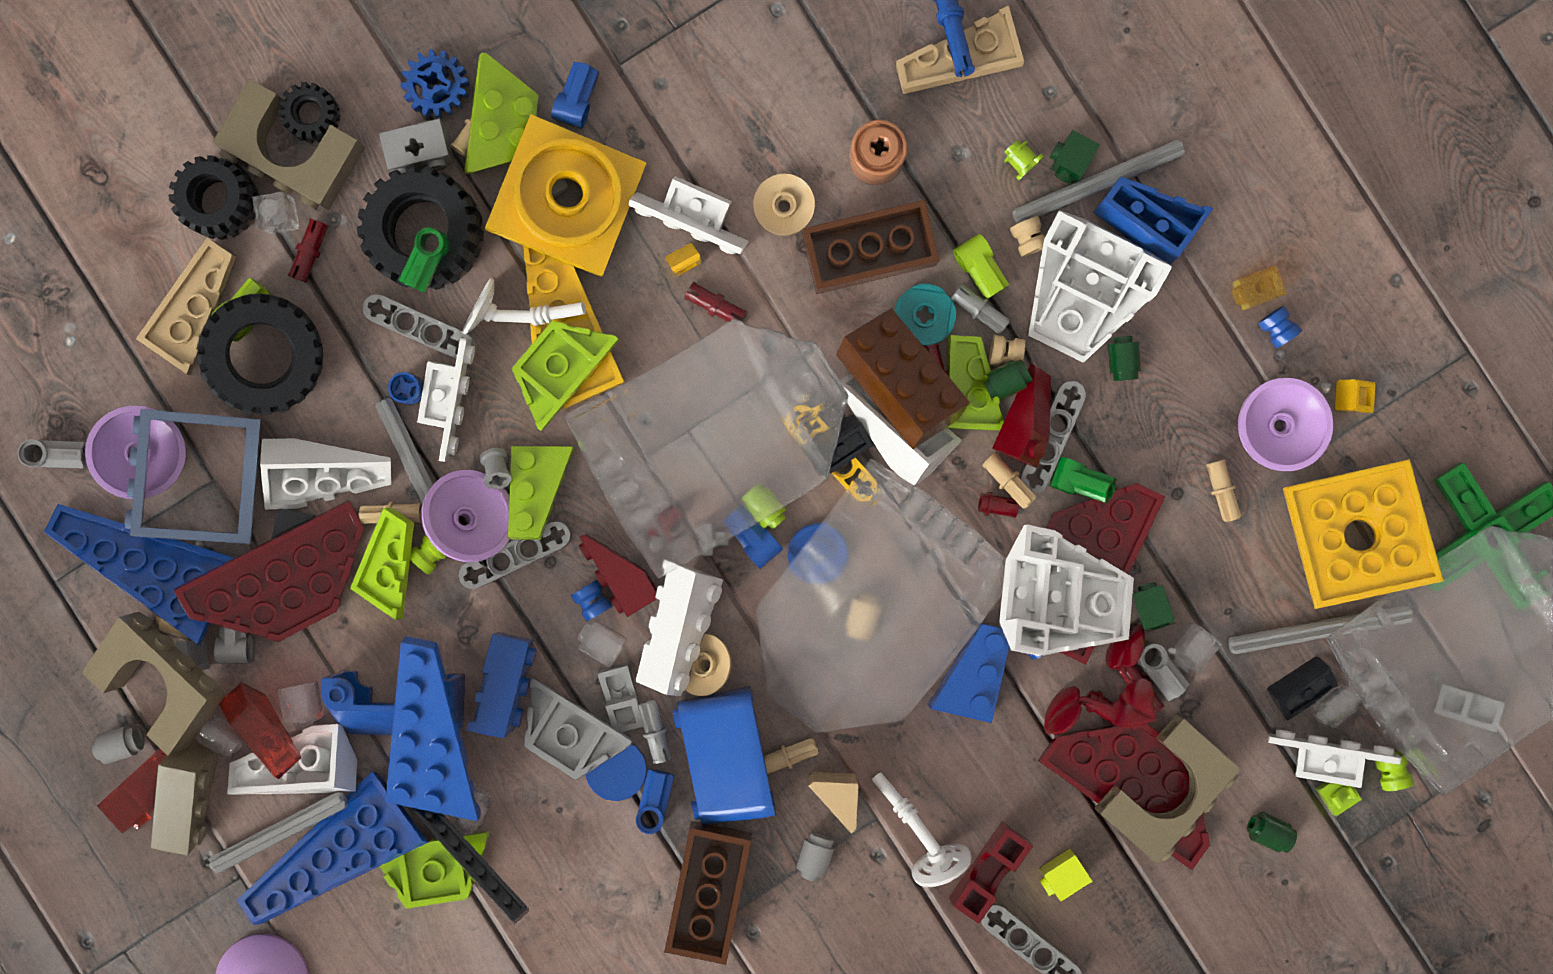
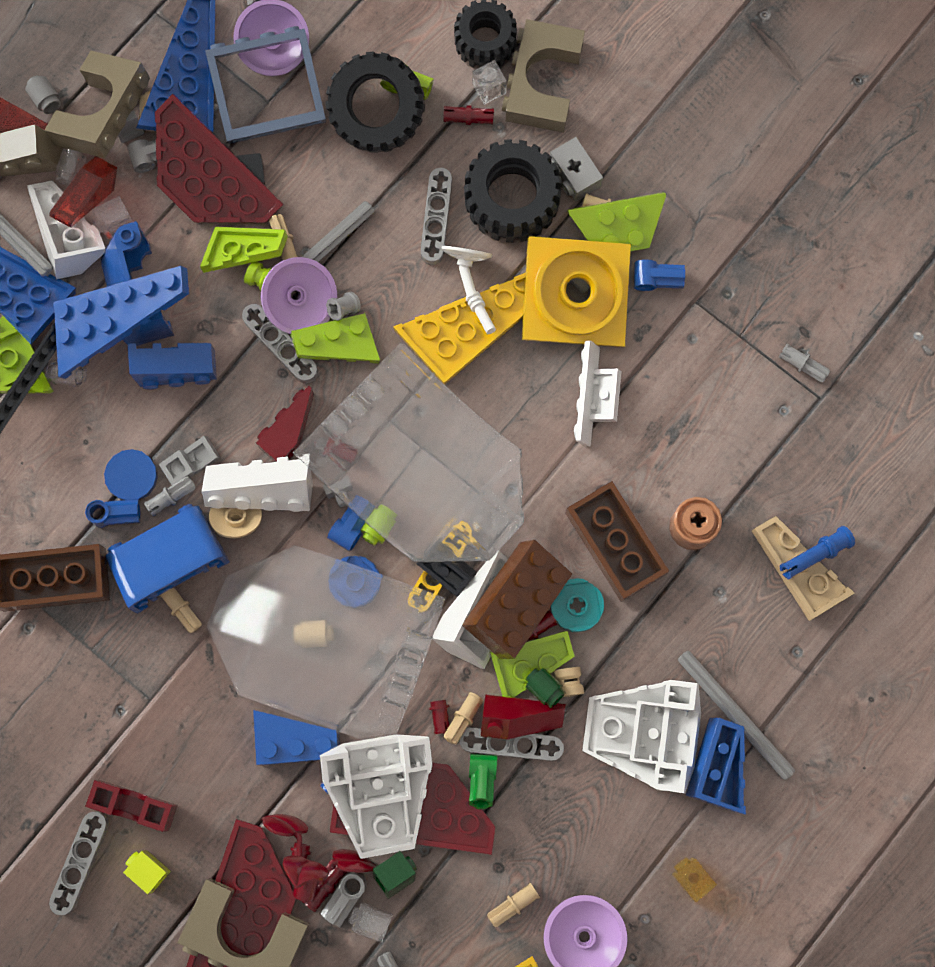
camera: 80 degrees right, 10 degrees down
(193, 298) = (398, 41): tan wing -> none
(293, 103) = (580, 70): black tyre -> none
(306, 471) = (296, 165): white wedge -> none
(401, 387) = (385, 215): blue wheel -> none
(422, 263) = (484, 197): green piece -> none
(437, 71) = (620, 169): blue gear -> none
(443, 396) = (388, 248): white bracket -> none
(558, 367) = (438, 327): lime wing -> none
(568, 733) = (148, 428): light grey wing -> none
(588, 594) = (265, 408): blue wheel -> none
(601, 642) = (229, 431): clear brick -> none
(683, 259) = (557, 399): yellow slope -> none
(714, 303) = (530, 435): dark red pin -> none
(784, 189) = (637, 454): tan dish -> none
(815, 856) = (104, 657): light grey brick -> none
(838, 793) = (159, 657): tan slope -> none
(936, 853) = (124, 761): white dish -> none
(976, 259) = (636, 634): lime piece -> none
(980, 309) = (597, 649): light grey axle -> none
(1022, 158) = (733, 643): lime brick -> none
(1029, 236) = (671, 669): tan wheel -> none
(1072, 157) = (748, 685): dark green brick -> none
(1124, 358) = (596, 783): dark green brick -> none
(1281, 328) = (667, 908): blue wheel -> none

